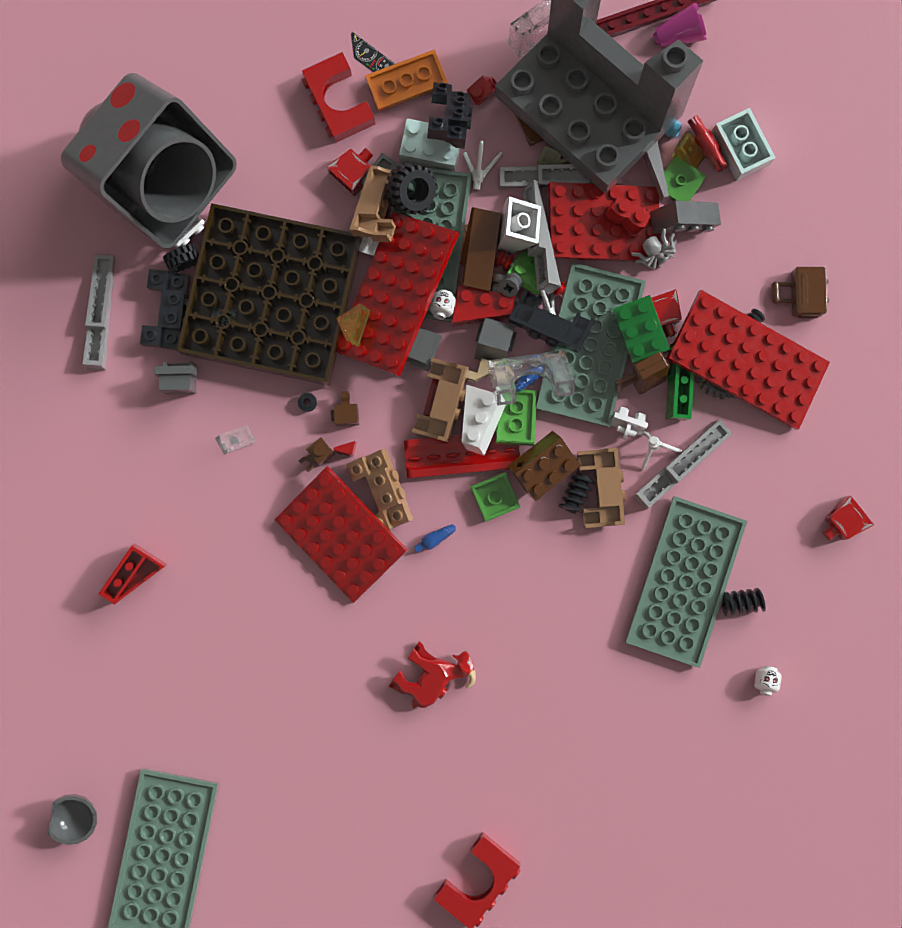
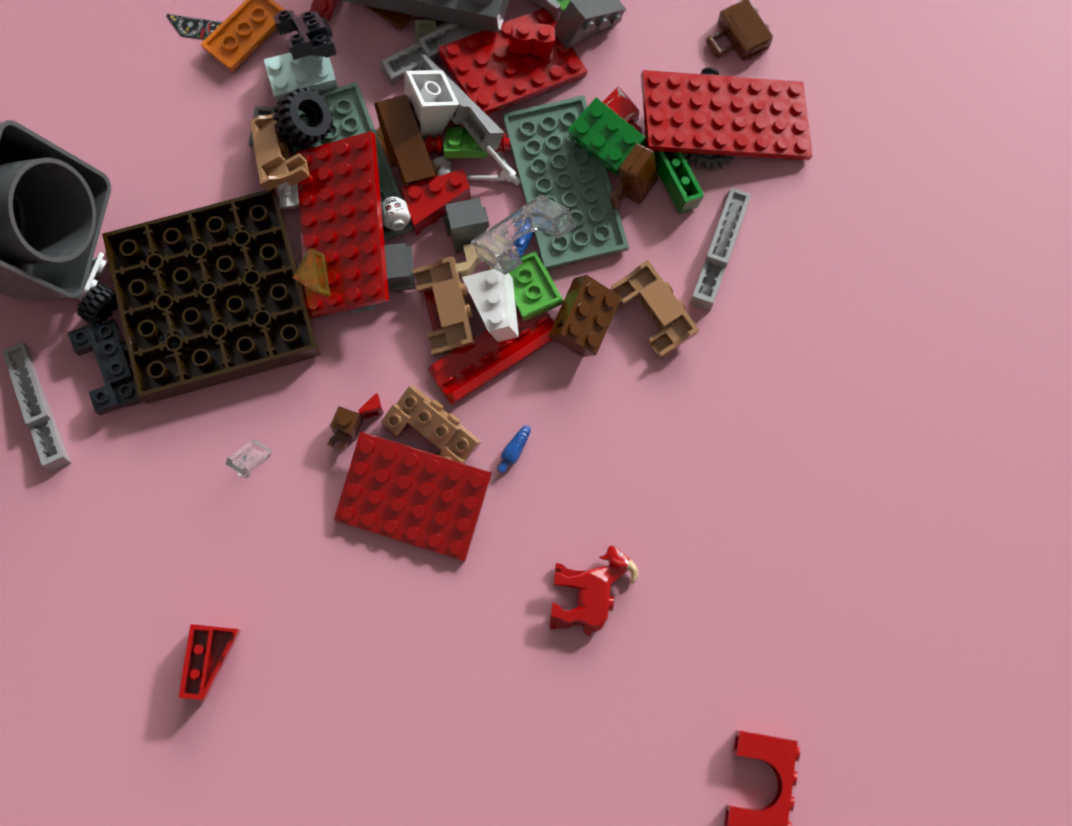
camera: 30 degrees left, 10 degrees down
(177, 378) = (153, 427): dark grey plate -> none
(311, 406) = (306, 389): black plate -> none
(339, 123) = (196, 100): red arch -> none
(345, 413) = (352, 372): reddish brown brick -> none
(351, 169) = (231, 137): red torso -> none
(478, 174) = (364, 79): white plant -> none
(495, 497) = (552, 375): bright green plate -> none
(514, 281) = (453, 154): dark grey wheel -> none
(550, 327) = (513, 180): black bracket -> none
(576, 493) = (631, 328): black piece -> none
(629, 425) = (645, 235): white hips -> none
(654, 444) = (682, 238): white plant -> none
(655, 250) = (578, 59): light grey animal -> none
(686, 581) = (792, 358): sand green plate -> none
(743, 600) = (859, 344): black piece -> none
(767, 680) = (930, 409): white head -> none
(846, 520) = (909, 216): red torso -> none

